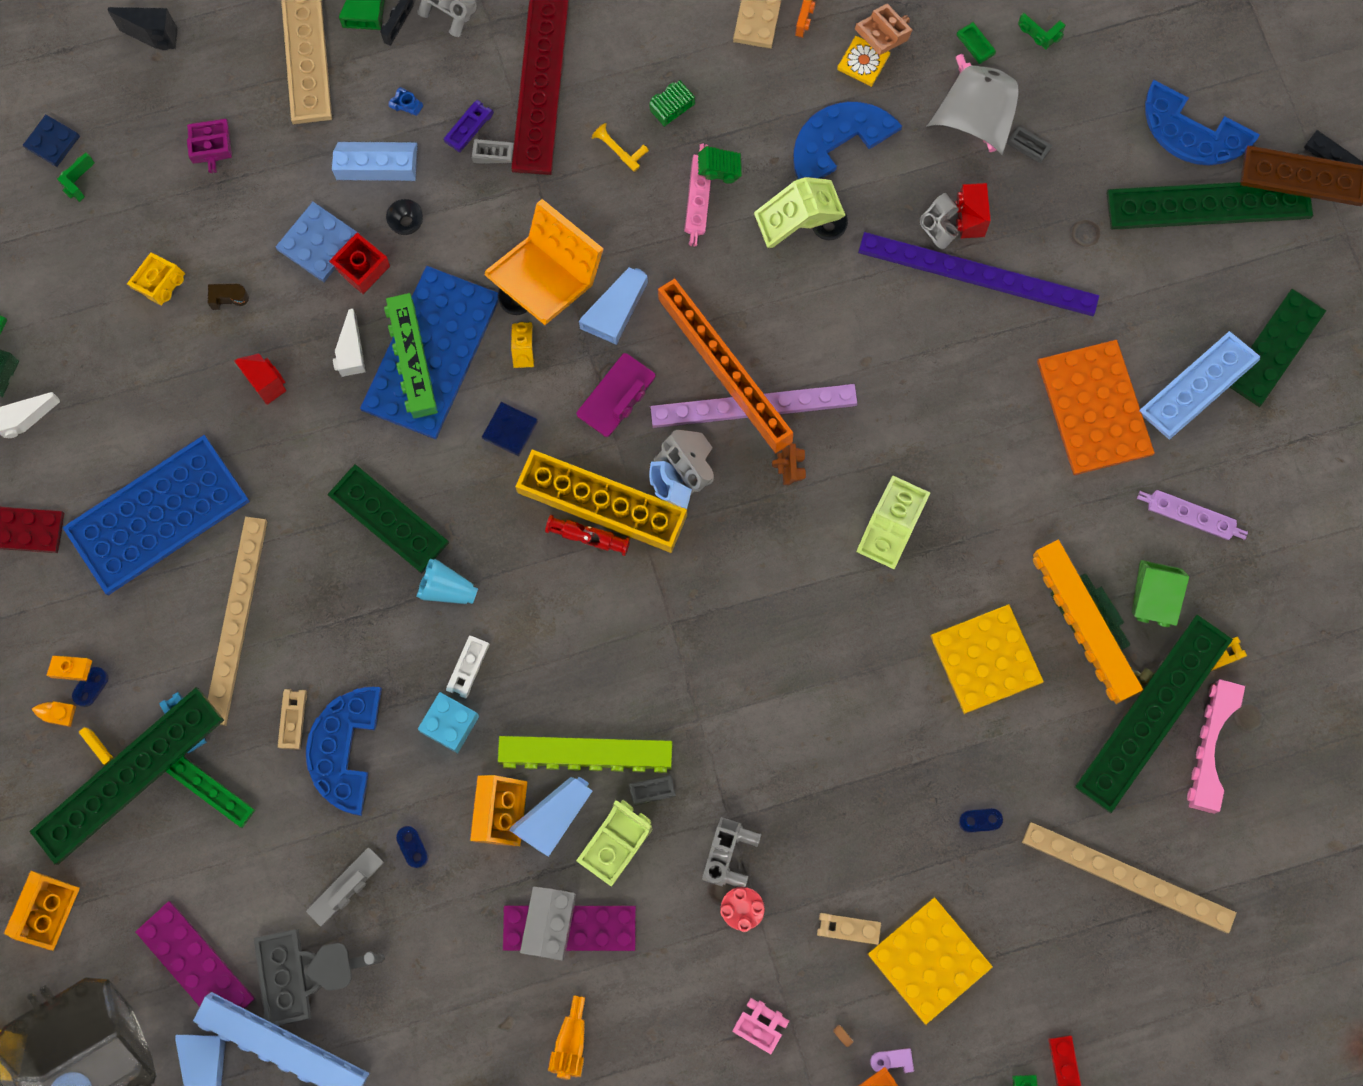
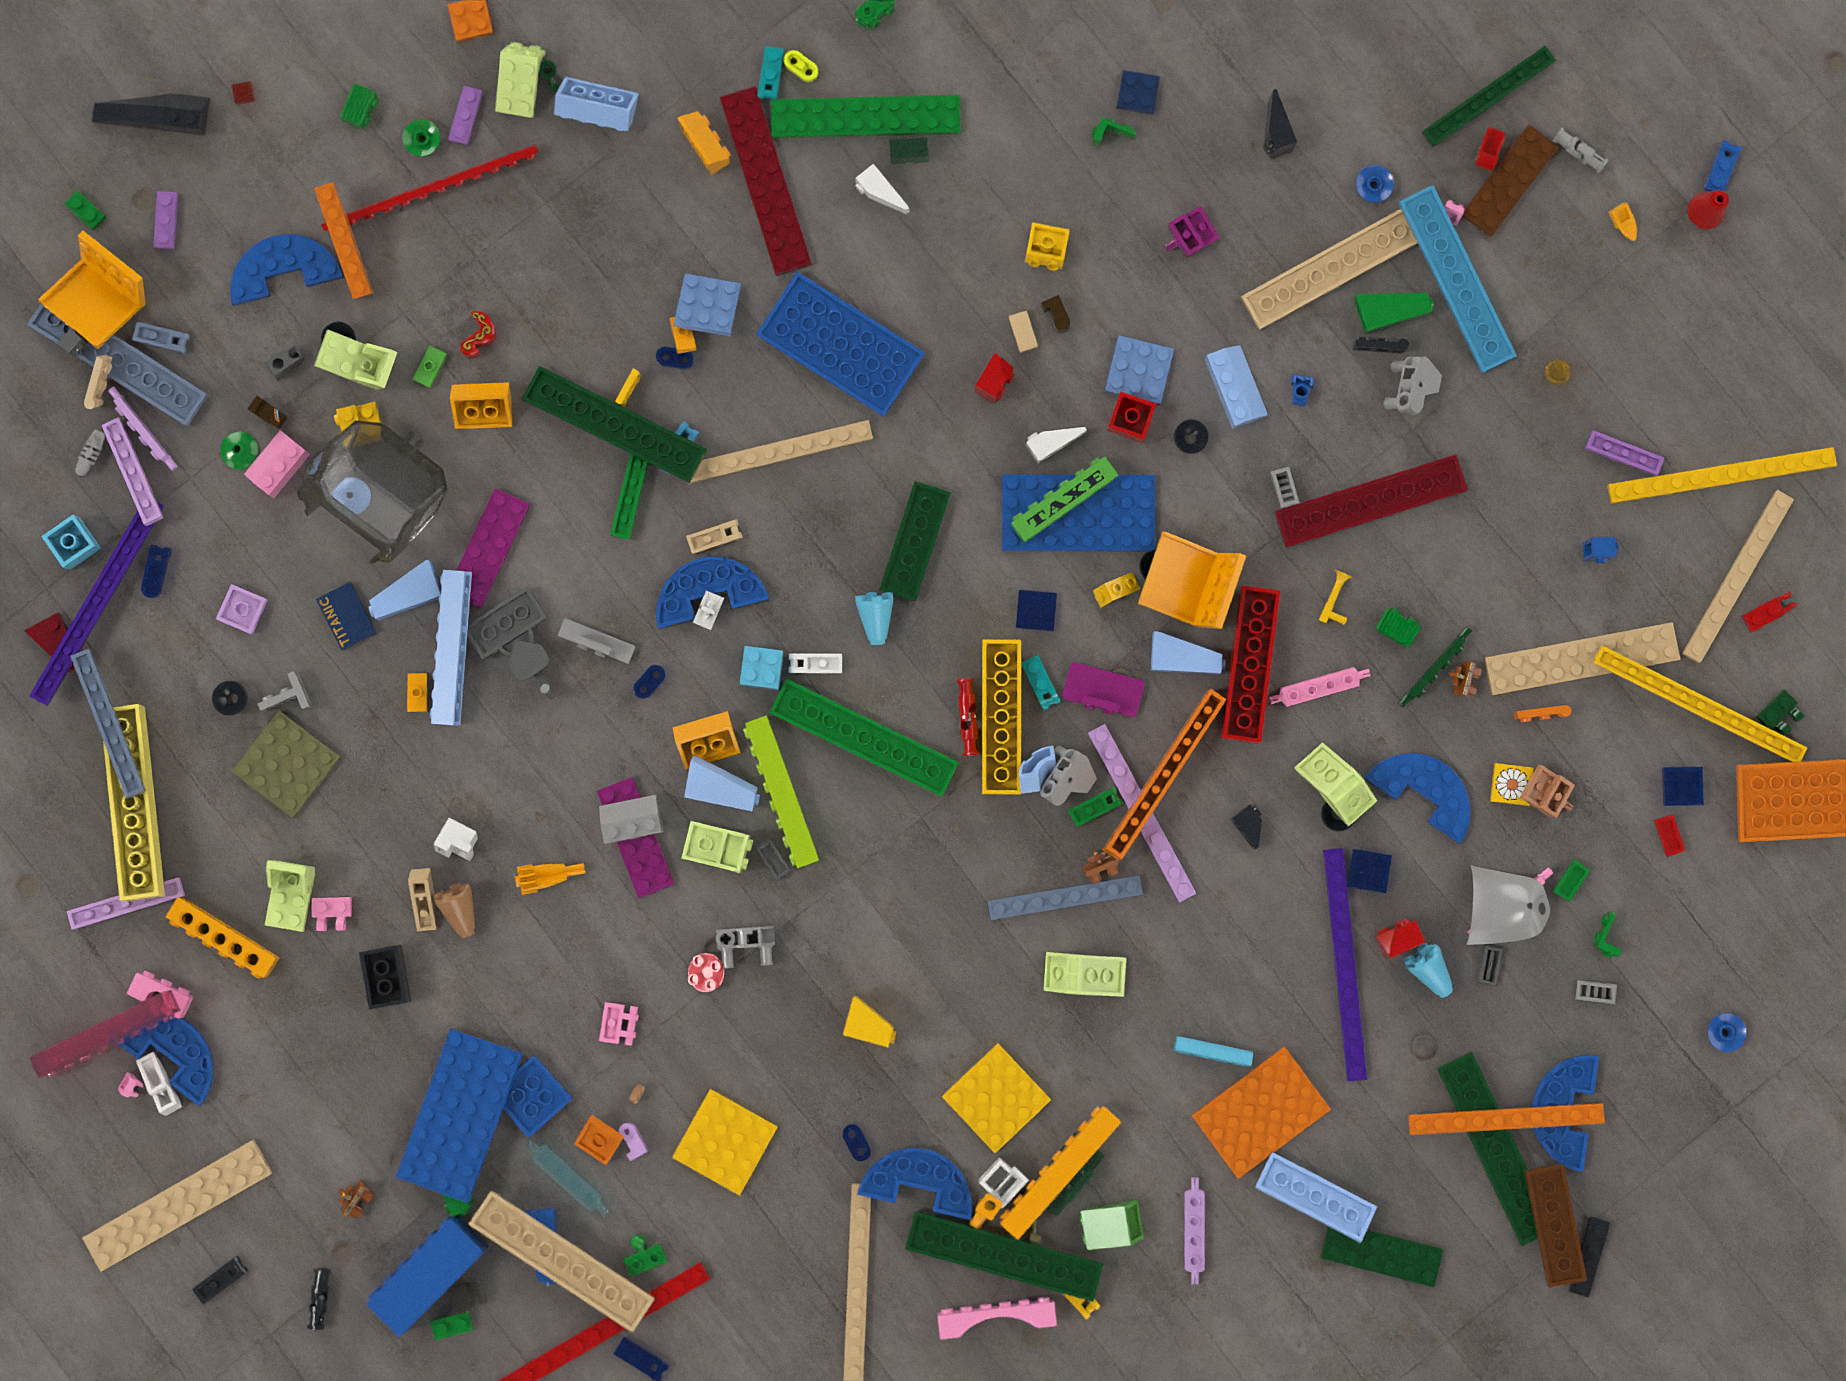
camera: 65 degrees right, 10 degrees up
(51, 631) = (707, 305): none -> medium blue plate
(55, 713) = (642, 339): light orange plate -> none
(229, 335) = (1023, 331): none -> tan tile
(364, 754) = (708, 610): none -> white hips
(468, 126) = (1301, 454): dark purple plate -> none
(564, 648) = (864, 737): none -> green plate
(584, 452) = (1040, 682): none -> teal plate
(651, 246) = (1250, 664): none -> red brick
(719, 164) = (1352, 694): green brick -> none
(722, 77) = (1431, 674): none -> dark green plate
(729, 448) = (1094, 807): none -> green plate
(745, 63) = (1463, 677): none -> dark orange hips
(807, 308) = (1249, 824): none -> black slope
(808, 513) = (1065, 897): none -> sand blue plate
(850, 929) = (724, 1067): tan plate -> none
(862, 757) = (868, 1025): none -> yellow slope
(896, 216) = (1369, 871): none -> clear blue plate
(942, 230) = (1375, 911): light grey piece -> none
(1011, 195) = (1430, 969): none -> medium azure cone
(1018, 428) = (1213, 1051): none -> medium azure brick
(1034, 764) = (921, 1170): none -> blue plate
(1076, 684) = (1002, 1181): none -> white plate
(1097, 46) = (1580, 983): none -> light grey slope
(1100, 712) = (985, 1210): none -> light orange bracket
(1184, 183) = (1506, 1118): none -> orange plate

